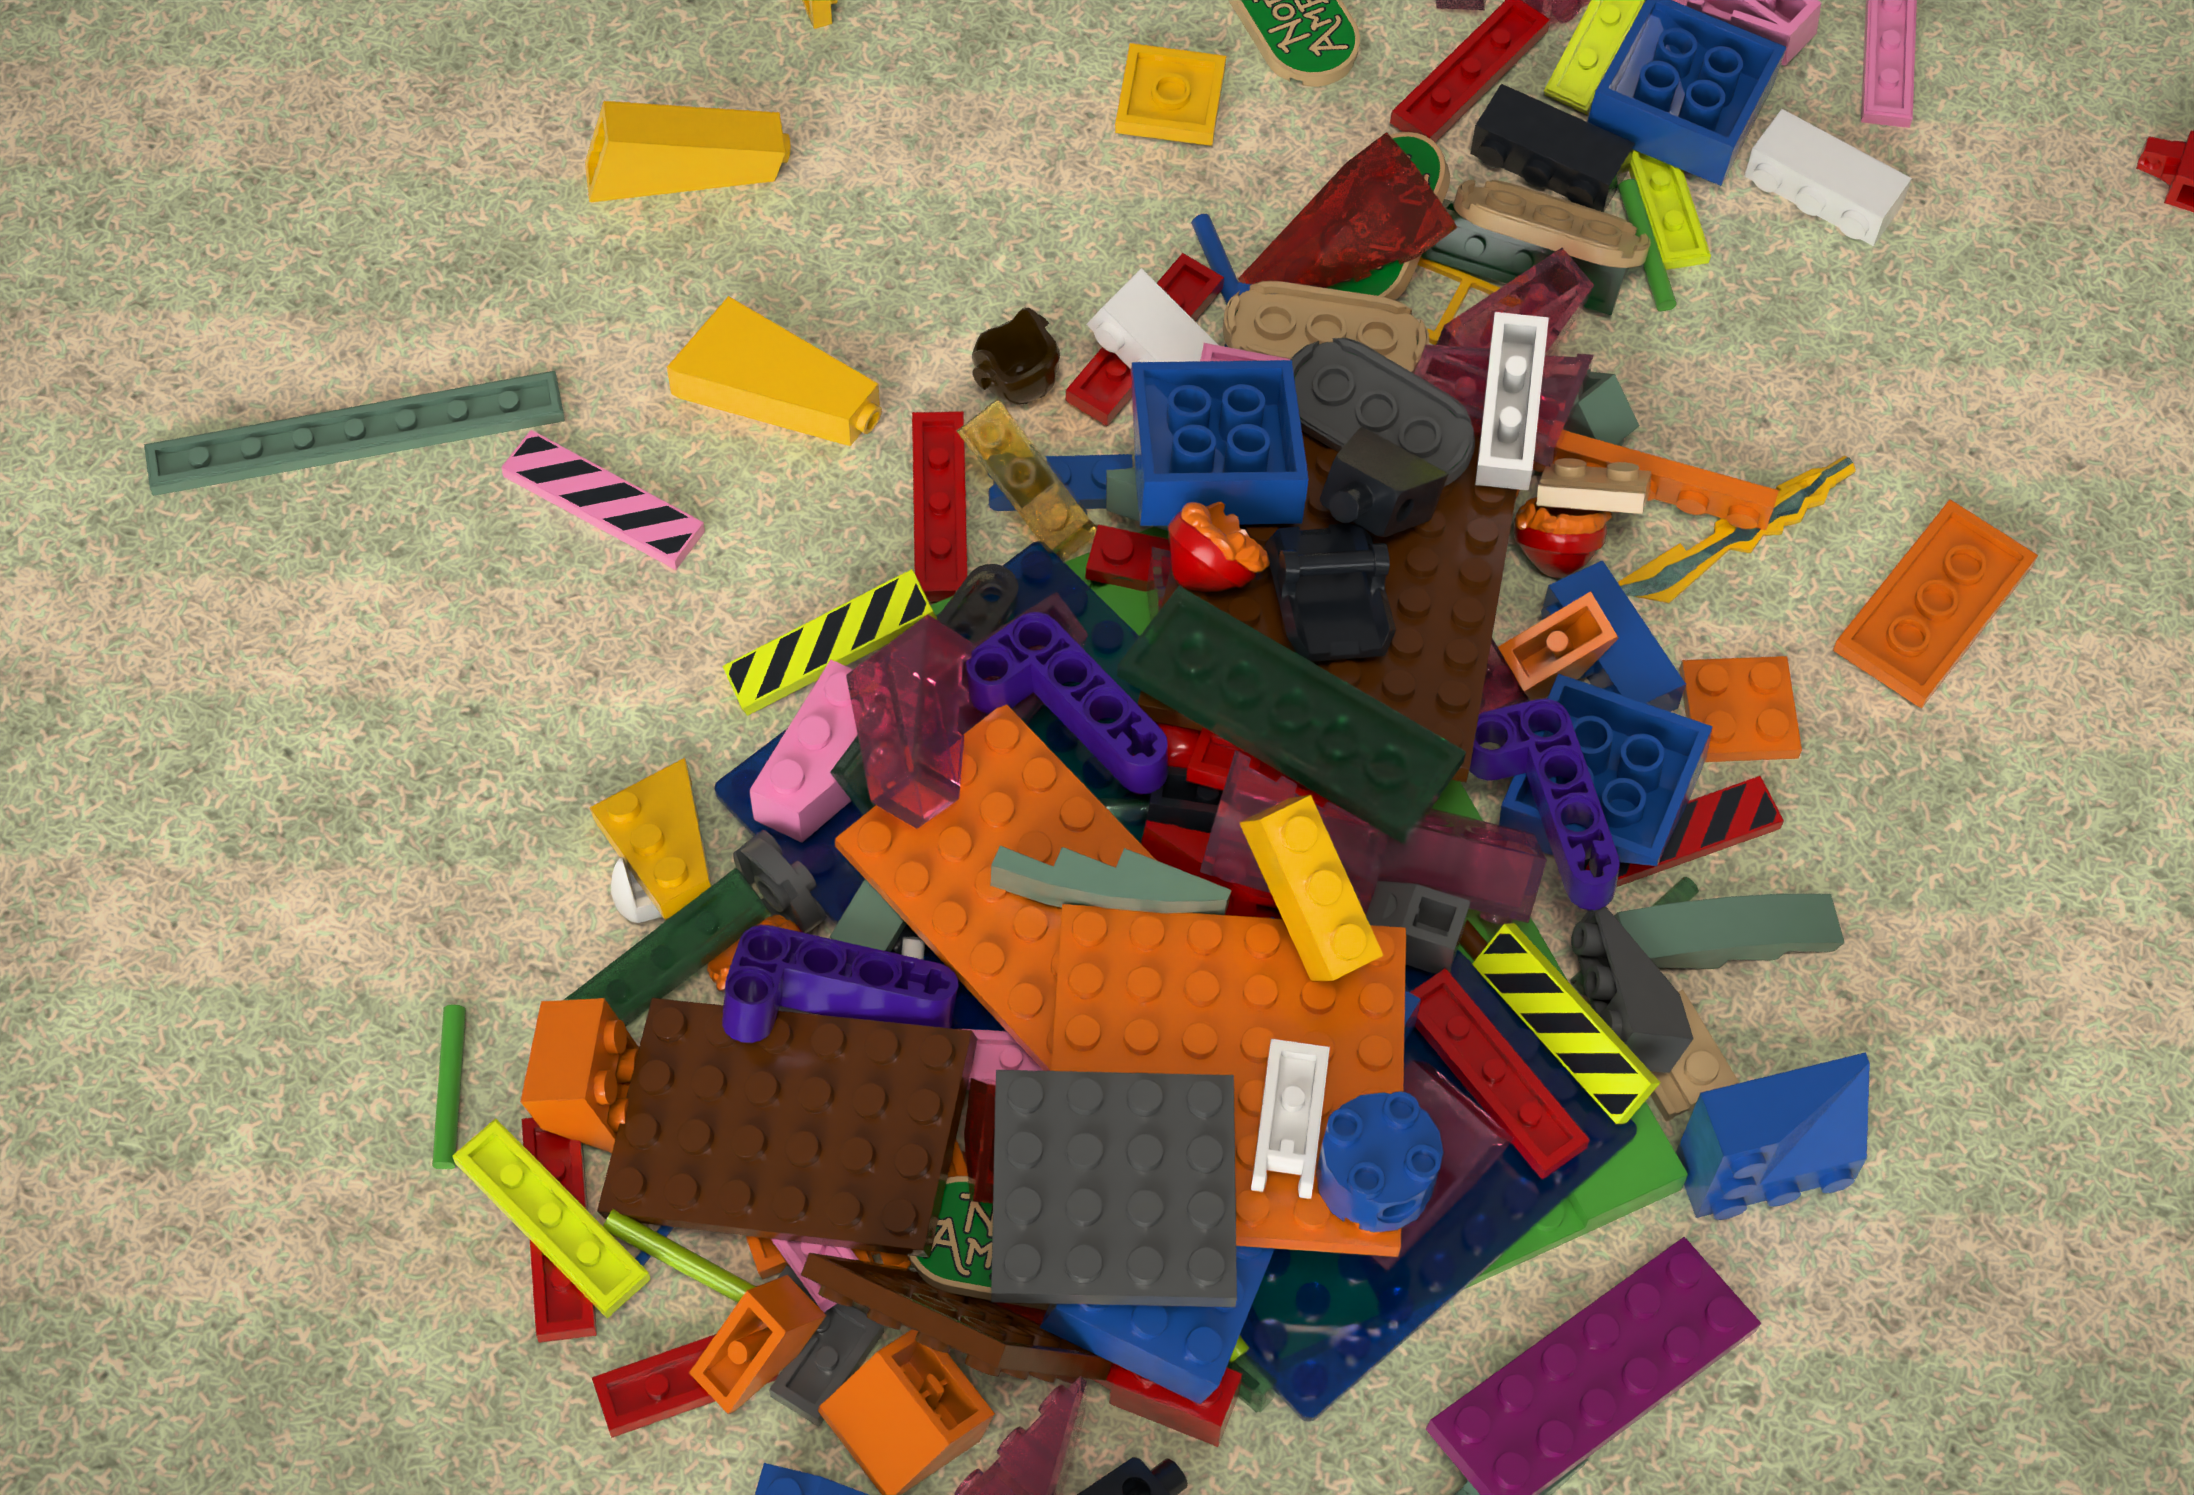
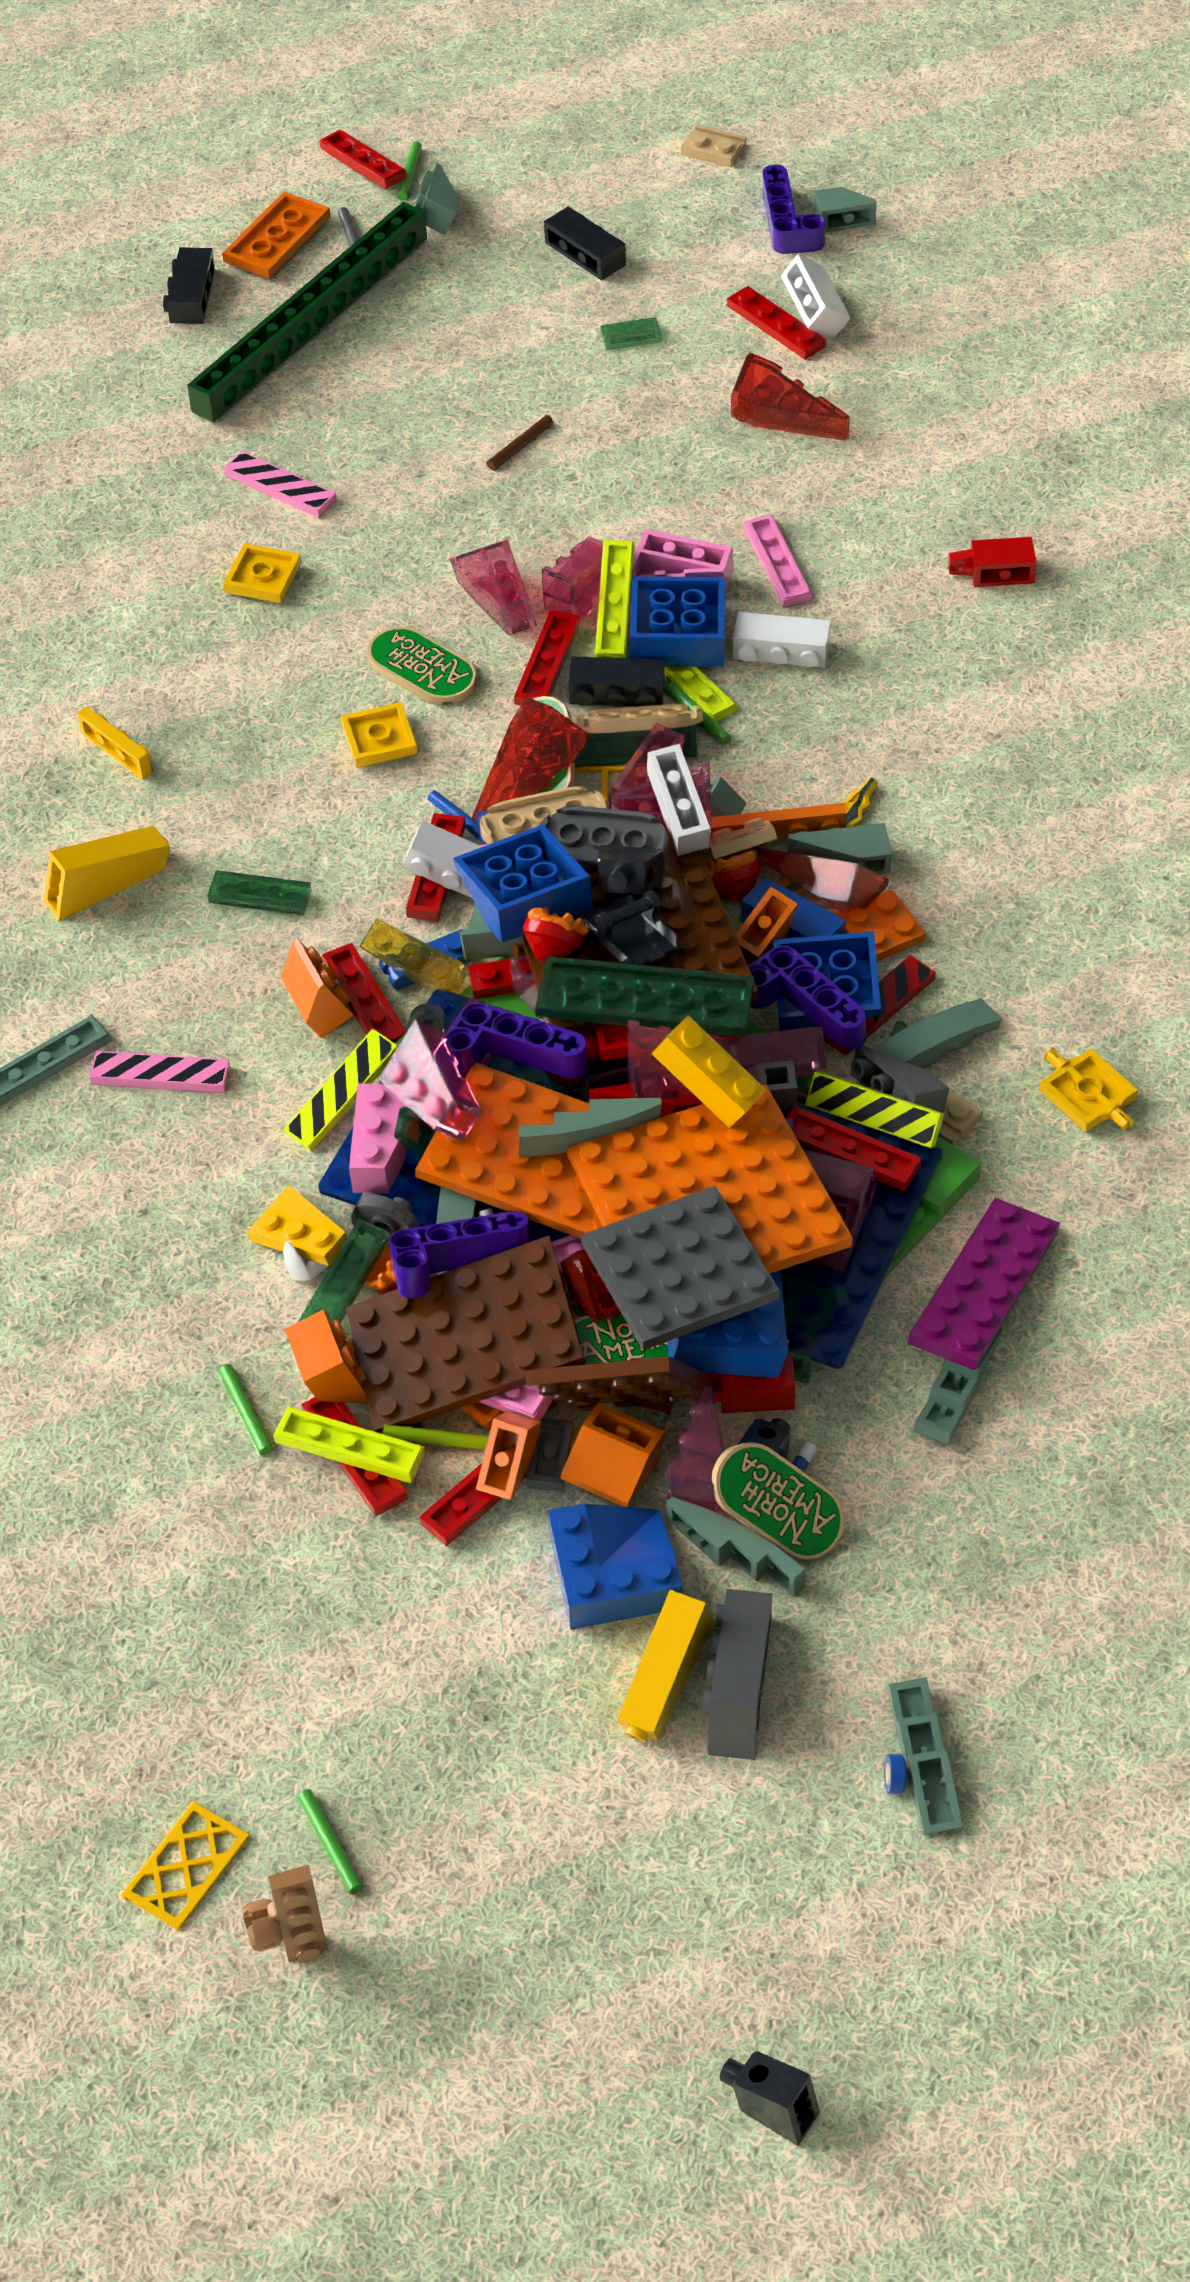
camera: 20 degrees left, 10 degrees down
(773, 376) = (223, 967): yellow slope -> none
(870, 470) = (315, 989): none -> orange slope
(879, 276) = (259, 892): none -> clear green plate
(1017, 359) = (368, 900): dark brown cap -> none
(1291, 1113) = (757, 1191): white hinge -> none
(1379, 1161) = (820, 1192): blue brick -> none
(1689, 605) = (836, 881): none -> clear red wedge
(1754, 567) = (859, 844): none -> sand green slope
(1777, 1137) = (1020, 1119): blue slope -> none
(1920, 1121) = (1088, 1089): none -> yellow plate
(1935, 603) = (959, 832): orange plate -> none

